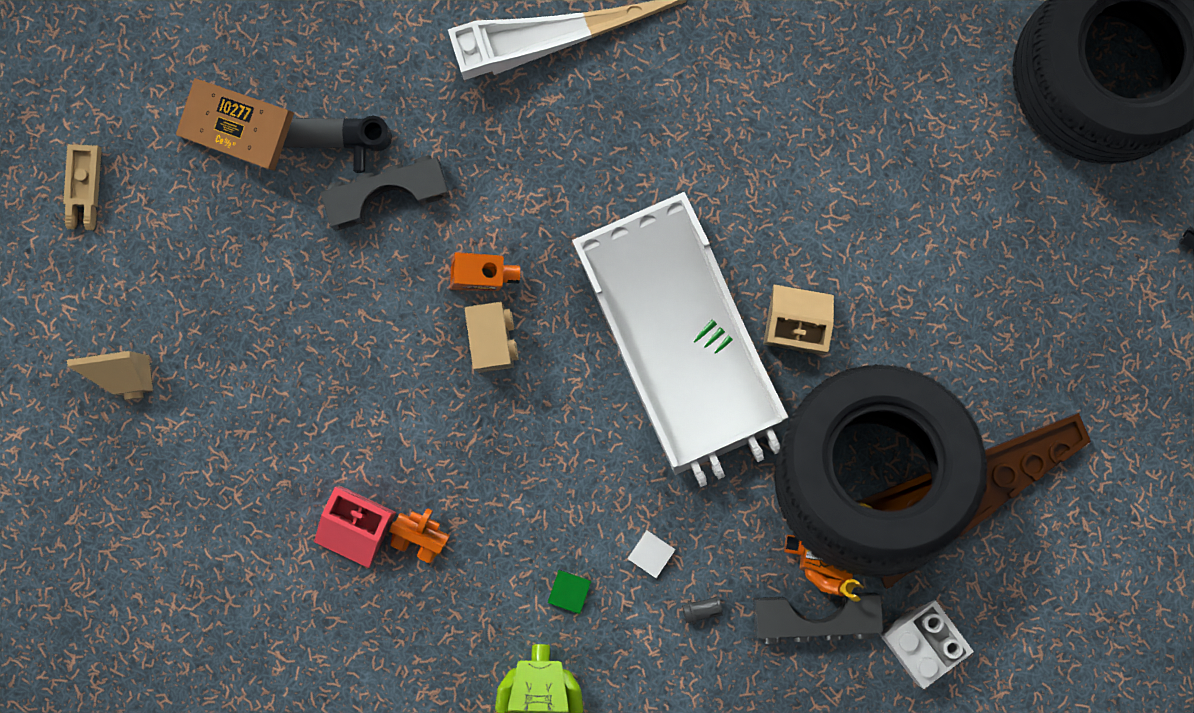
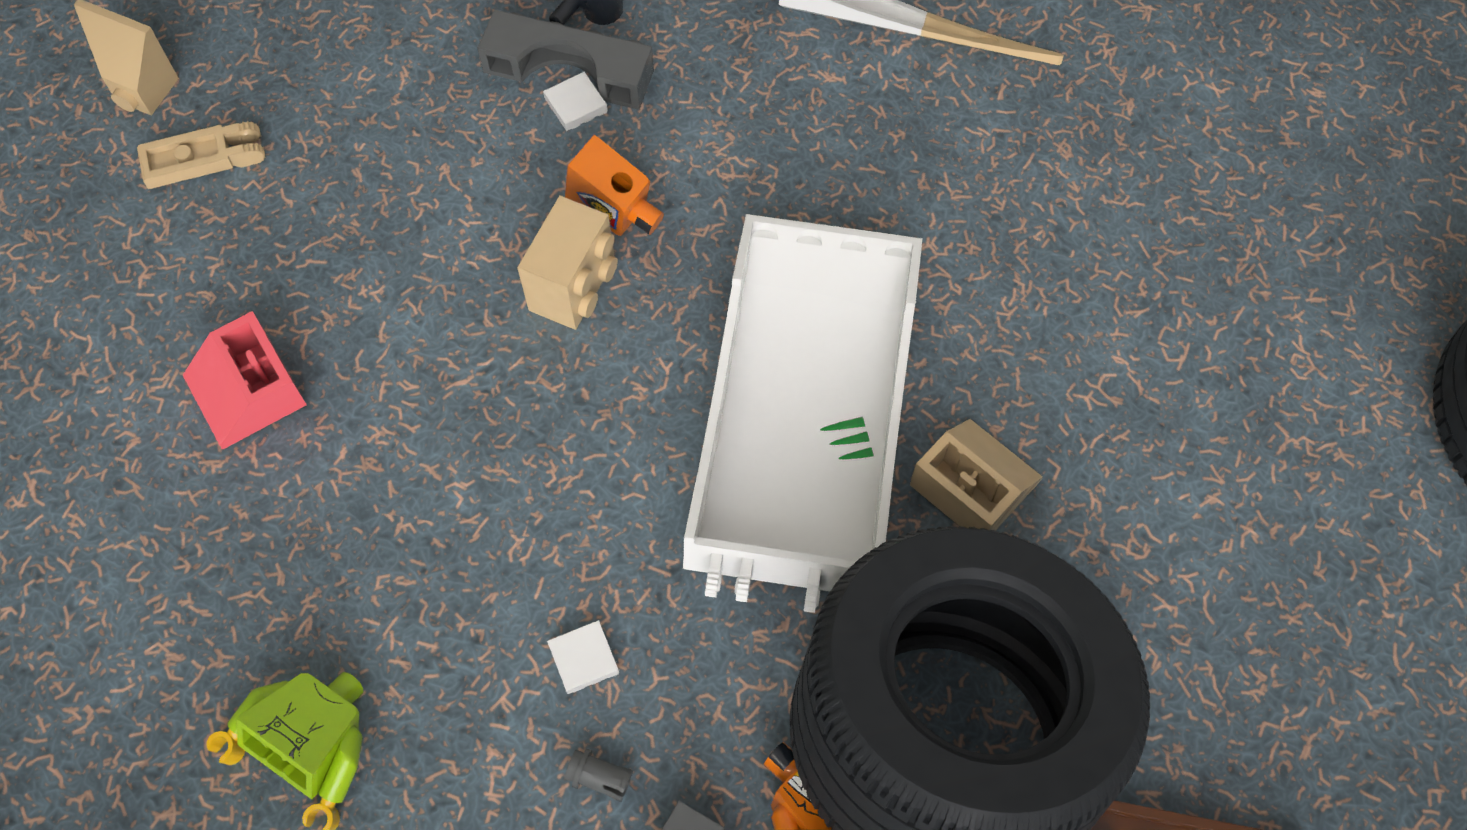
camera: 30 degrees right, 20 degrees down
(207, 402) = (199, 153): none -> tan hinge
(408, 217) = (575, 101): none -> white piece
(419, 530) = (318, 439): orange hips -> none
(569, 591) = (442, 637): green piece -> none

